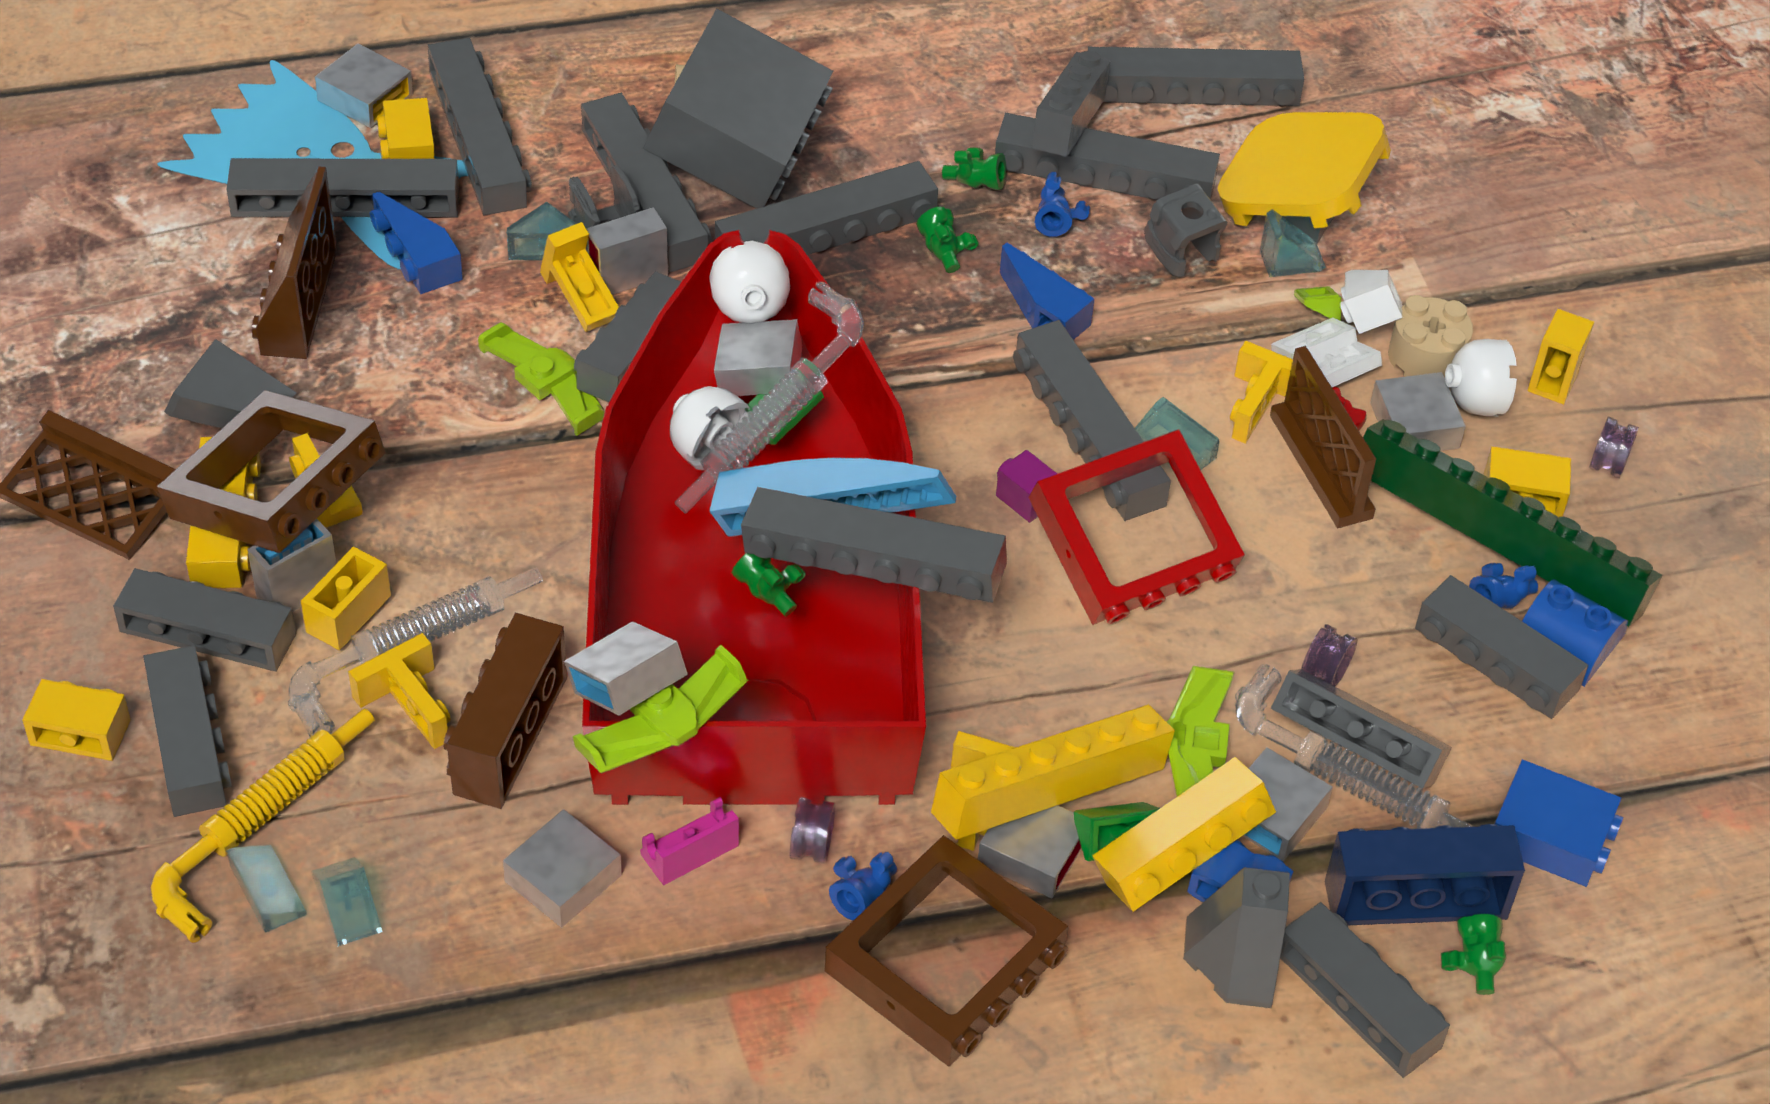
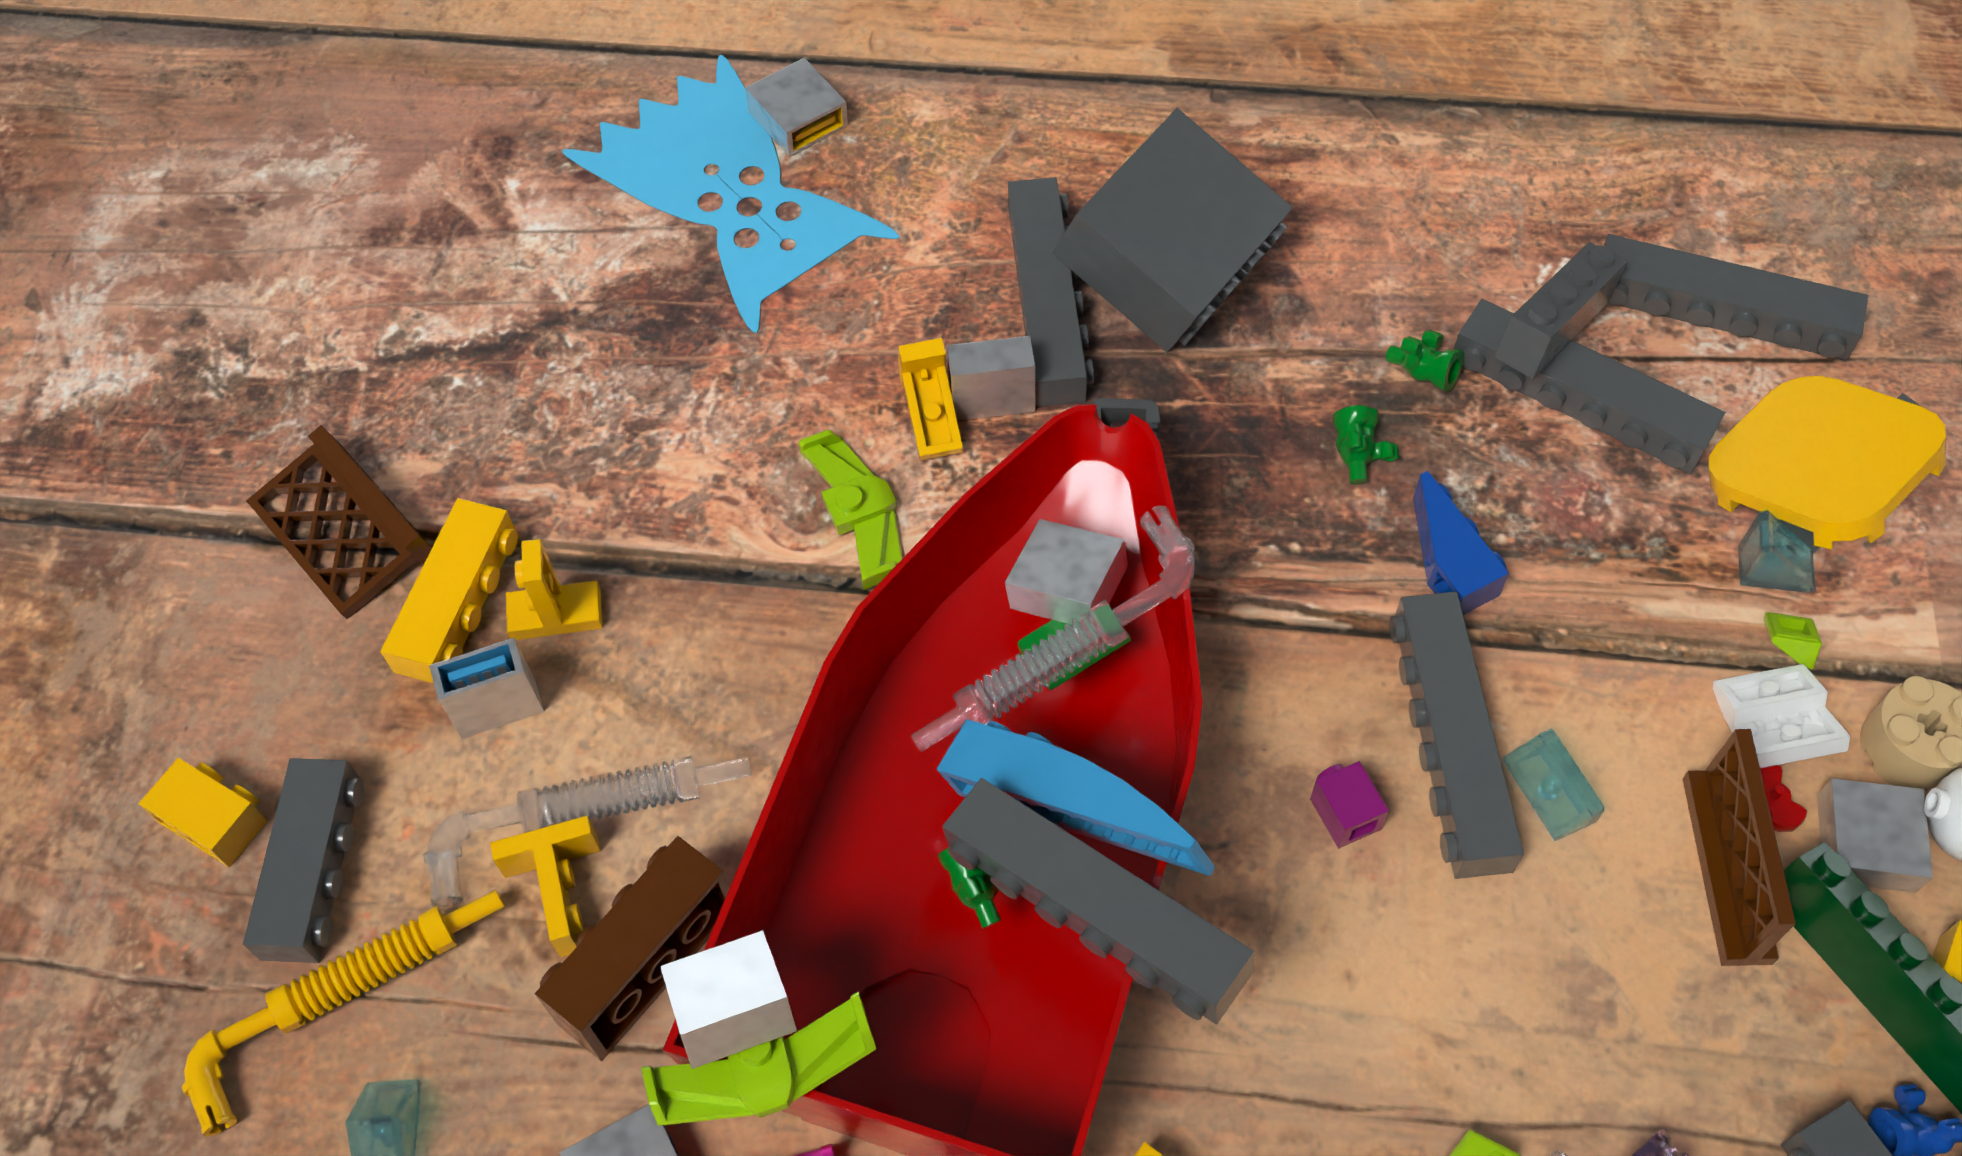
camera: 25 degrees right, 10 degrees up
(193, 489) = (515, 616): reddish brown piece -> none
(206, 617) = (382, 722): dark grey brick -> none
(220, 387) = (508, 452): dark grey slope -> none
(265, 885) = (309, 1088): clear light blue slope -> none
(276, 184) = (729, 224): dark grey brick -> none
(298, 275) = (637, 324): reddish brown slope -> none
(346, 598) = (528, 742): yellow brick -> none
(406, 130) = (816, 178): yellow brick -> none
(421, 245) = (780, 312): blue slope -> none
(478, 126) = (893, 184): dark grey brick -> none
(529, 234) = (909, 324): clear light blue slope -> none
(584, 209) = (1002, 323): dark grey piece -> none
(614, 347) = (914, 511): dark grey brick -> none
(703, 421) = (971, 645): white cylinder -> none
(750, 282) = (1082, 480): white cylinder -> none
(843, 210) = (1242, 381): dark grey brick -> none
(1056, 209) = (1502, 437): blue piece -> none
(1096, 593) = (1373, 930): red piece -> none
(1172, 229) = (1633, 508): dark grey piece -> none
(1267, 376) = (1695, 727): yellow bracket -> none
(1370, 299) = (1857, 663): white slope -> none

